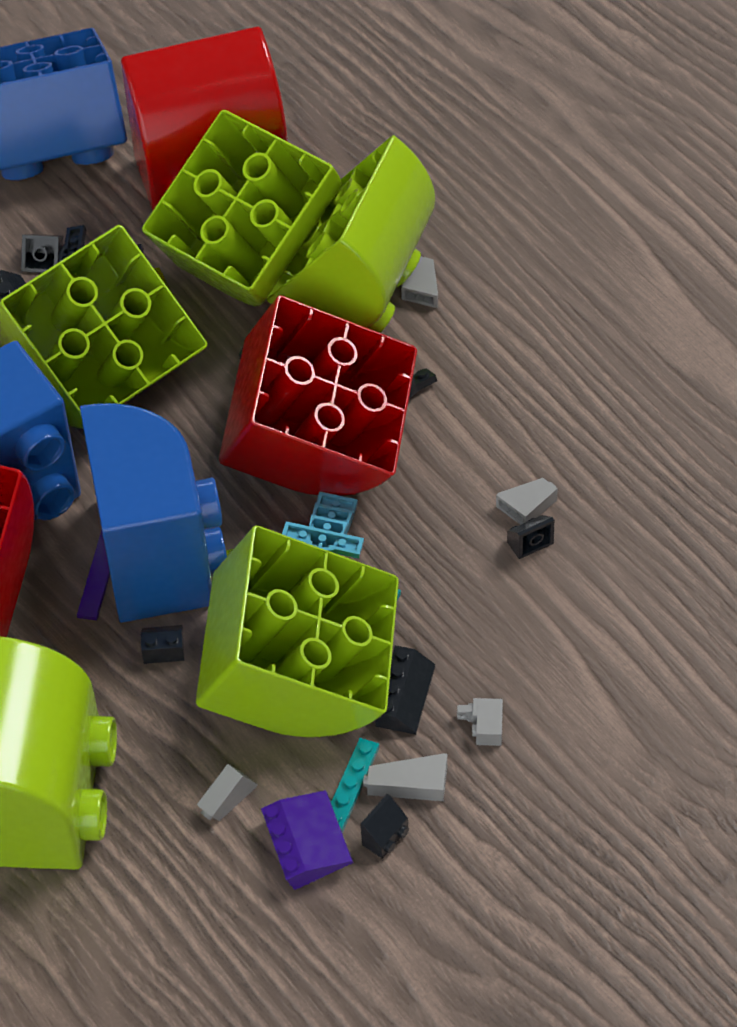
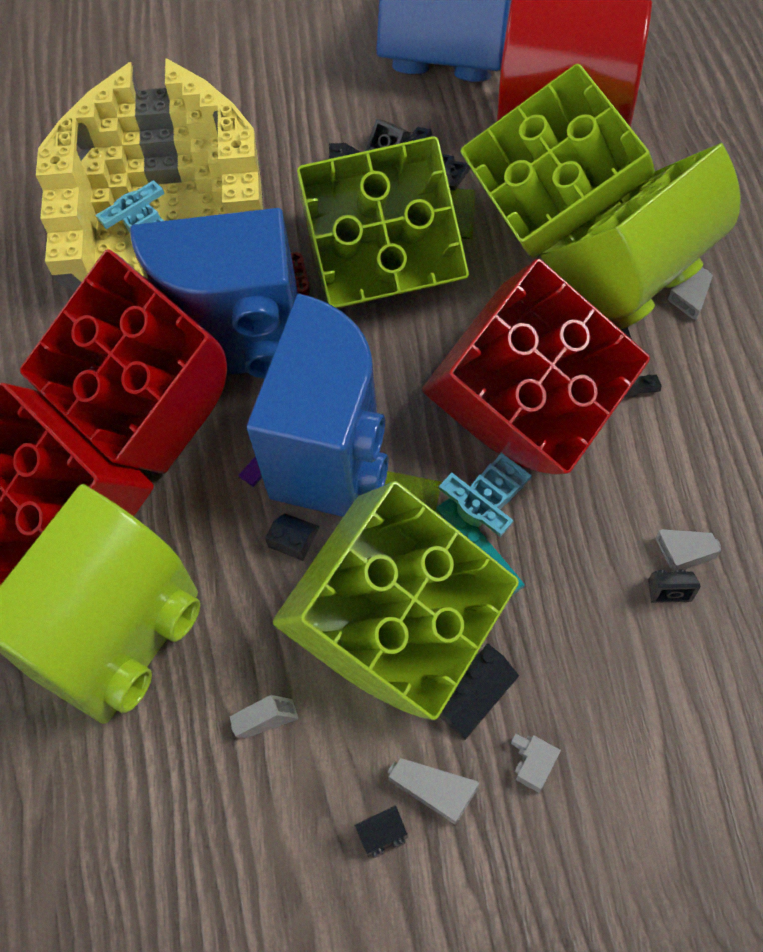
camera: 30 degrees right, 10 degrees up
(306, 837) = (306, 804): dark purple slope -> none
(352, 780) = (369, 772): teal plate -> none

